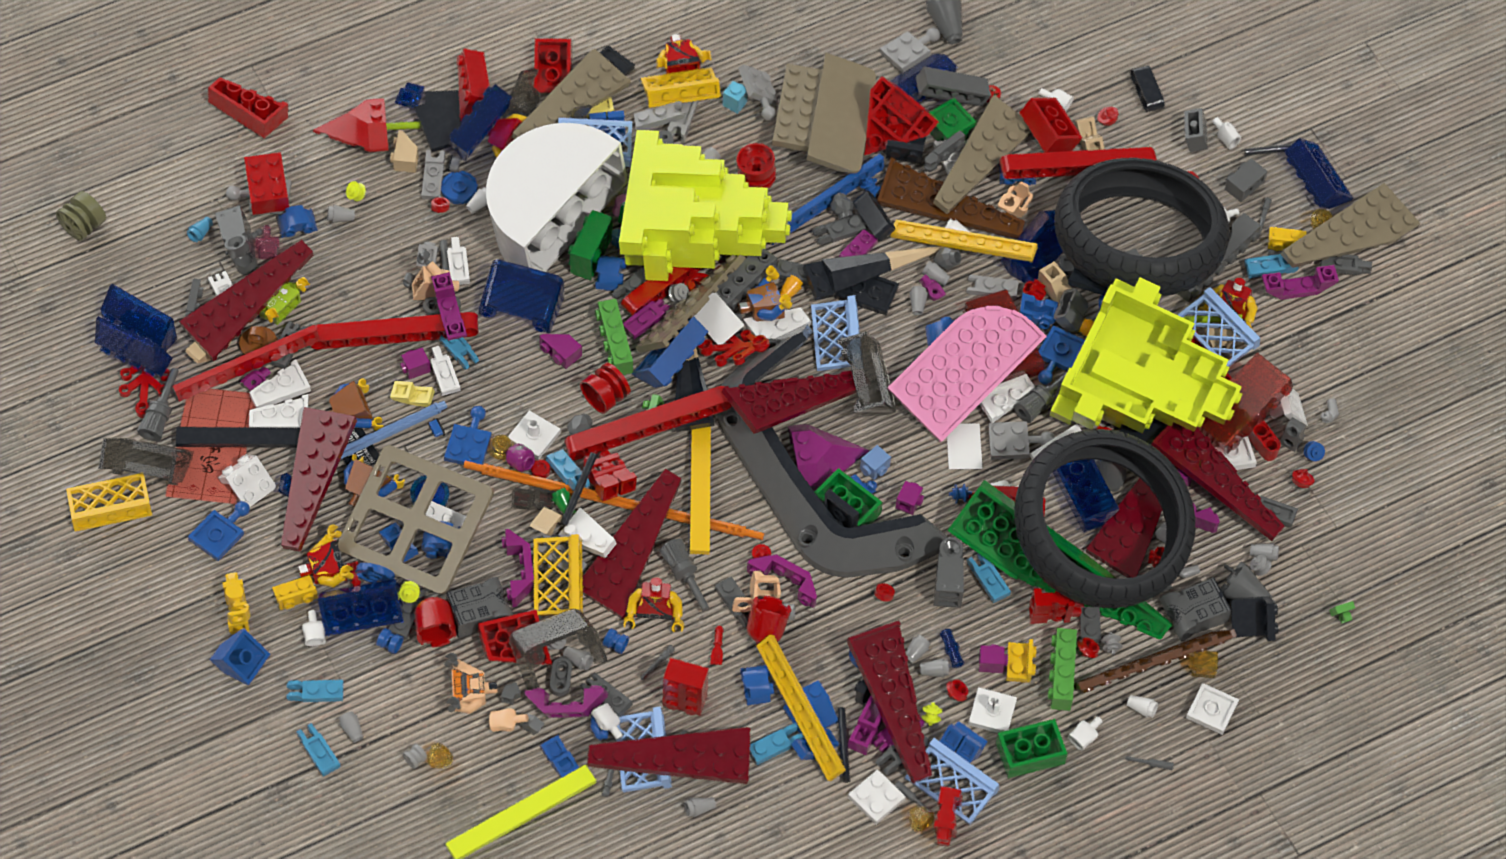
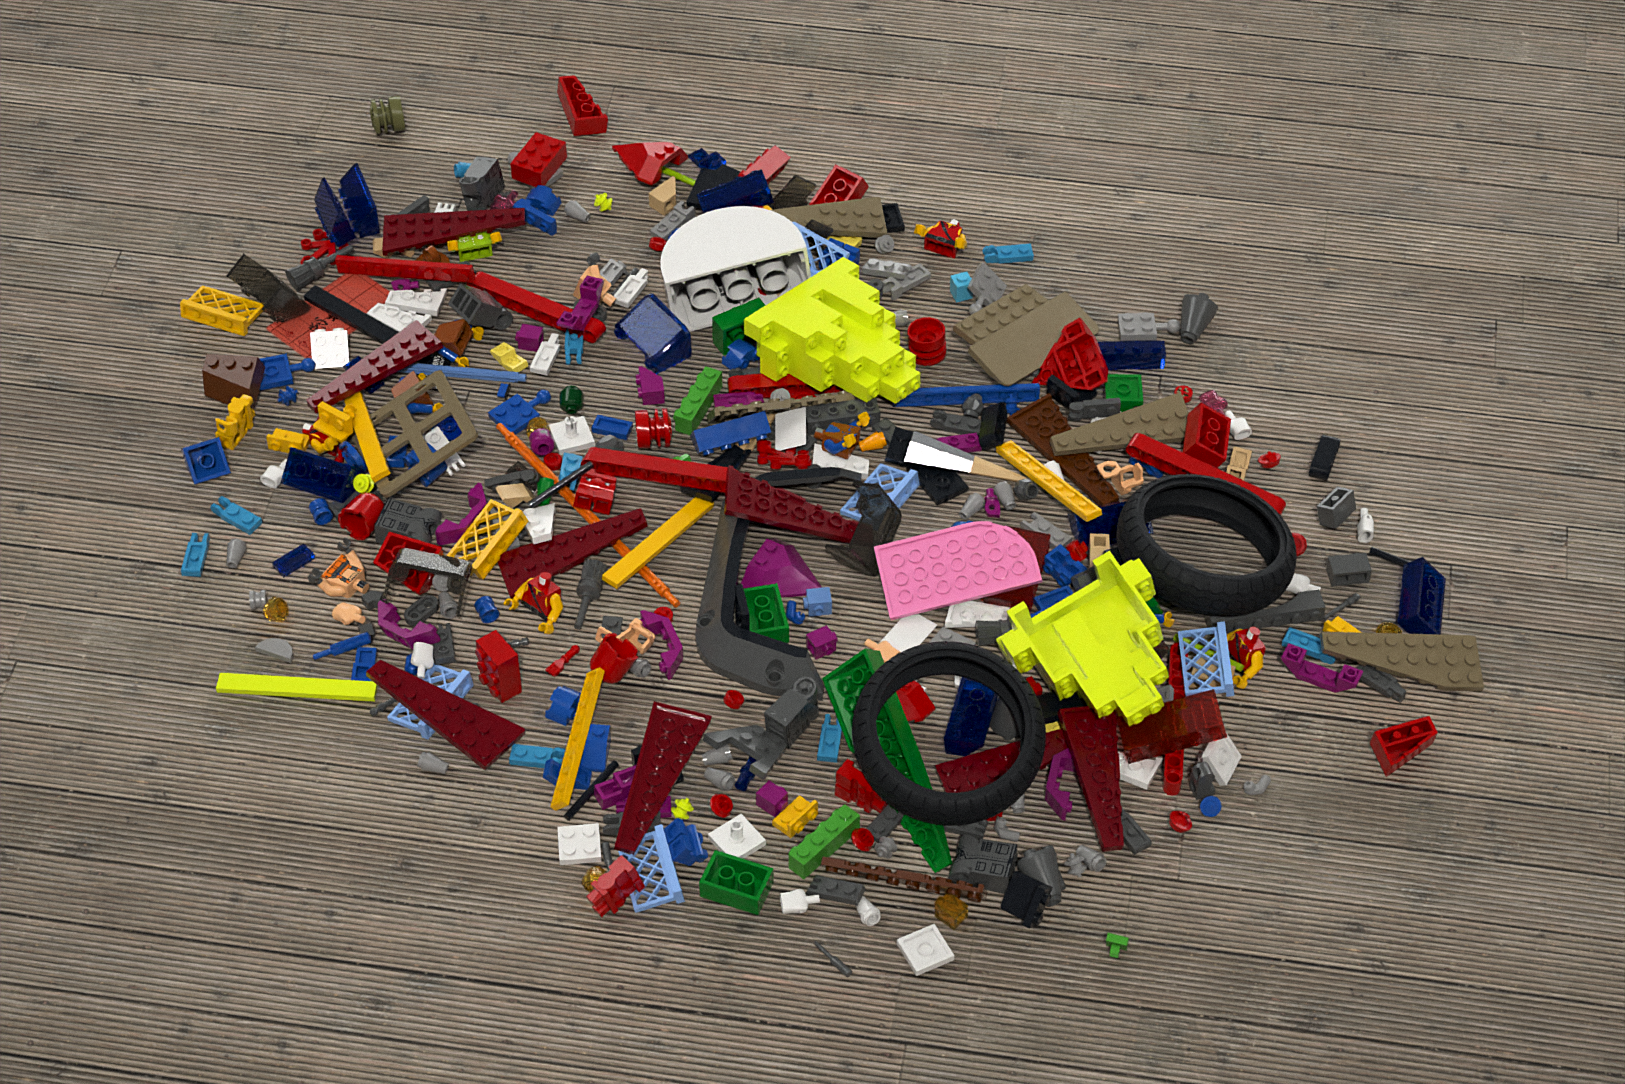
camera: 40 degrees right, 10 degrees down
(194, 566) = (232, 377): none -> reddish brown wedge
(253, 550) = (286, 396): none -> blue wheel
(322, 242) = (537, 218): none -> blue plate
(334, 552) = (333, 422): none -> yellow bracket
(353, 362) = (480, 308): none -> dark grey piece
(373, 547) = (368, 438): none -> yellow tile
(406, 700) = (293, 560): none -> clear blue tile
(471, 789) = (276, 648): none -> light grey tile
(506, 401) = (571, 399): none -> dark green head
(529, 750) = (345, 645): none -> blue axle
(532, 508) = (512, 478): none -> dark grey hinge
(560, 406) = (608, 425): none -> blue tile
(635, 92) = (884, 244): none -> light grey wheel
(686, 91) = (923, 258): yellow fence -> none
(742, 40) = (1008, 253): none -> dark azure hinge
(941, 619) = (753, 741): none -> dark grey wing
(950, 85) = (1130, 351): dark grey brick -> none
(963, 475) = (885, 648): none -> light nougat piece
(1024, 90) = (1214, 401): none -> clear pink piece
(1106, 704) = (836, 890): none -> dark grey hinge
(1406, 310) = (1402, 742): none -> red wedge

